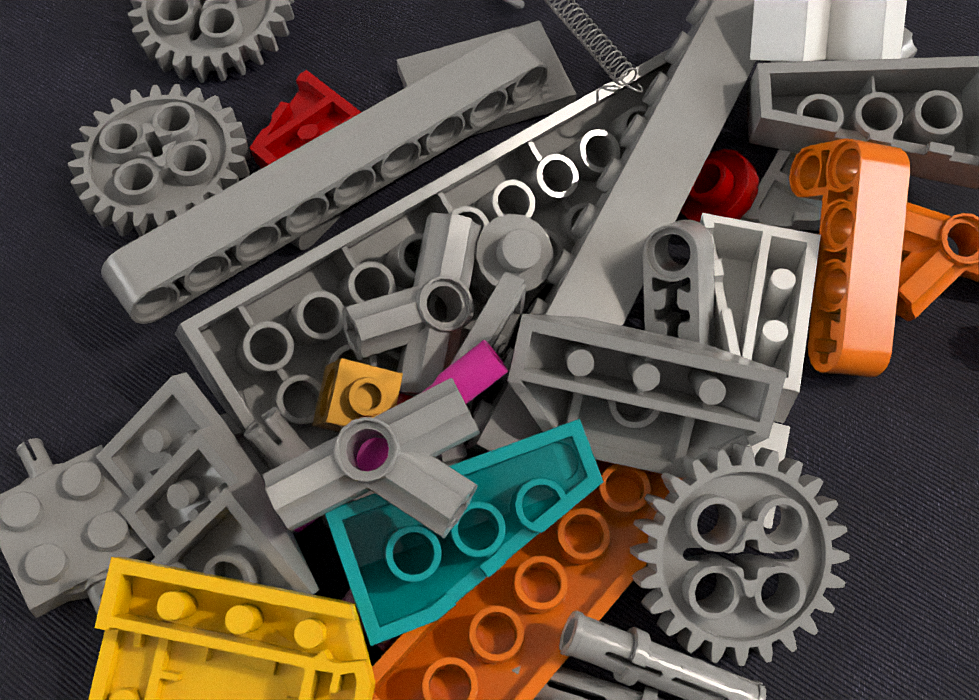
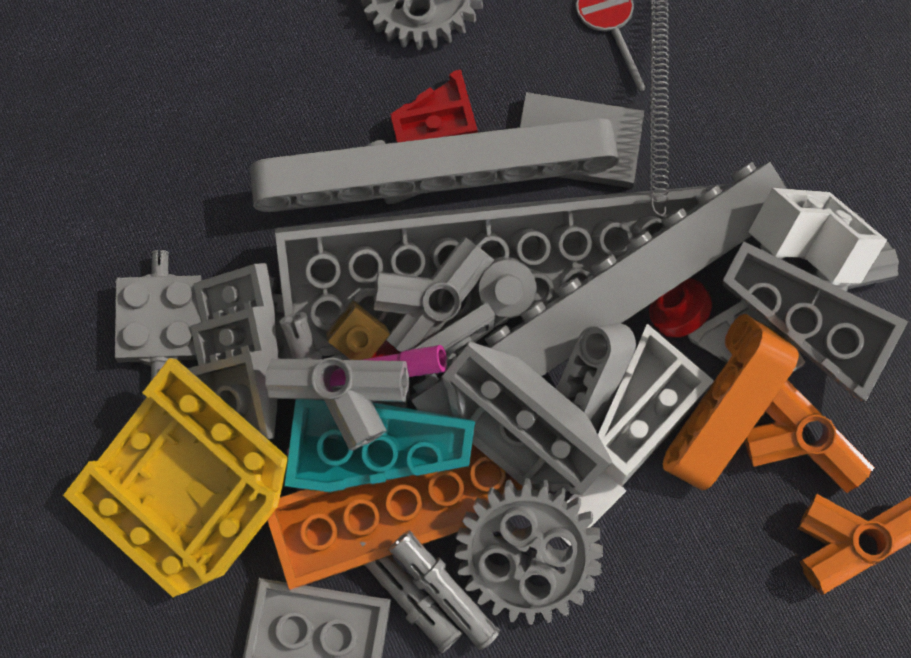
camera: 30 degrees right, 10 degrees up
(157, 158) = (334, 62): light grey gear -> none

